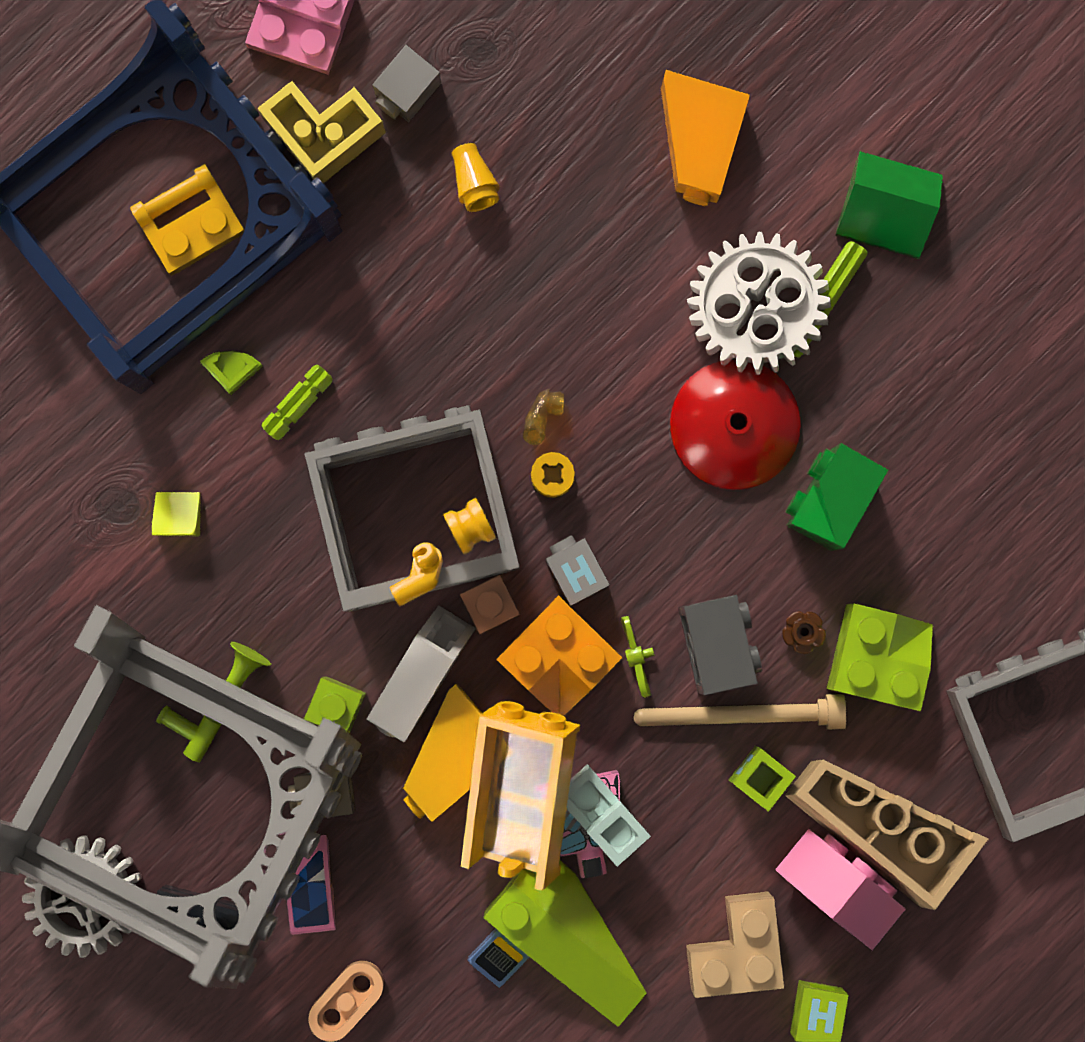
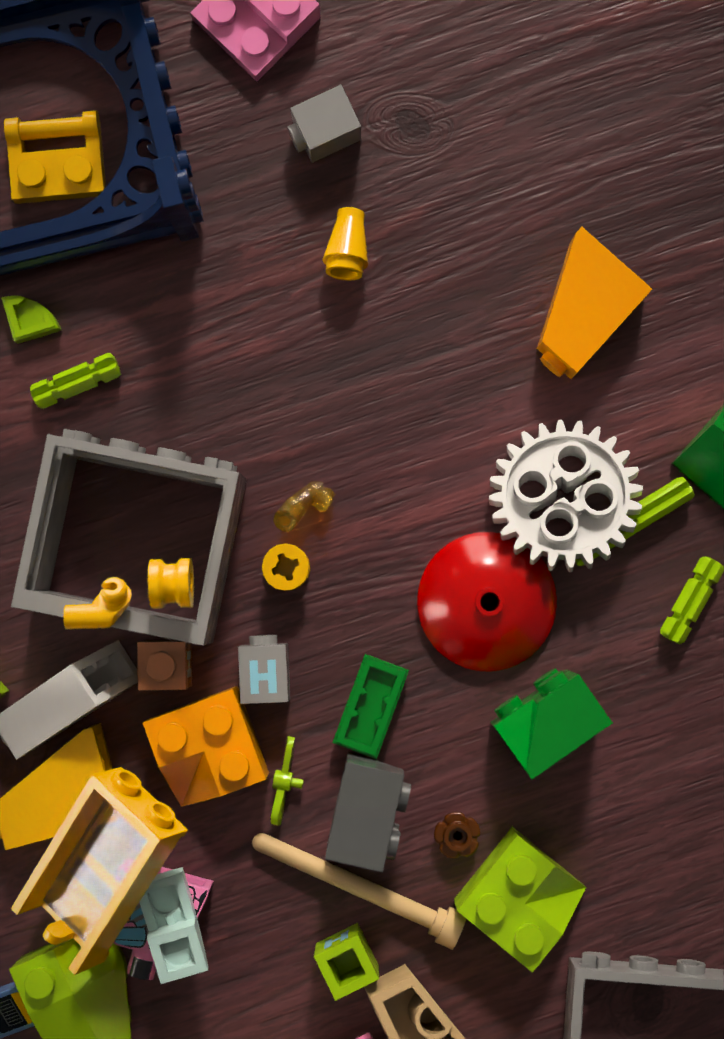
camera: 35 degrees right, 0 degrees up
(326, 139) = (217, 140): light yellow brick -> none
(679, 557) = (370, 706): none -> green plate
(907, 341) = (692, 600): none -> lime axle

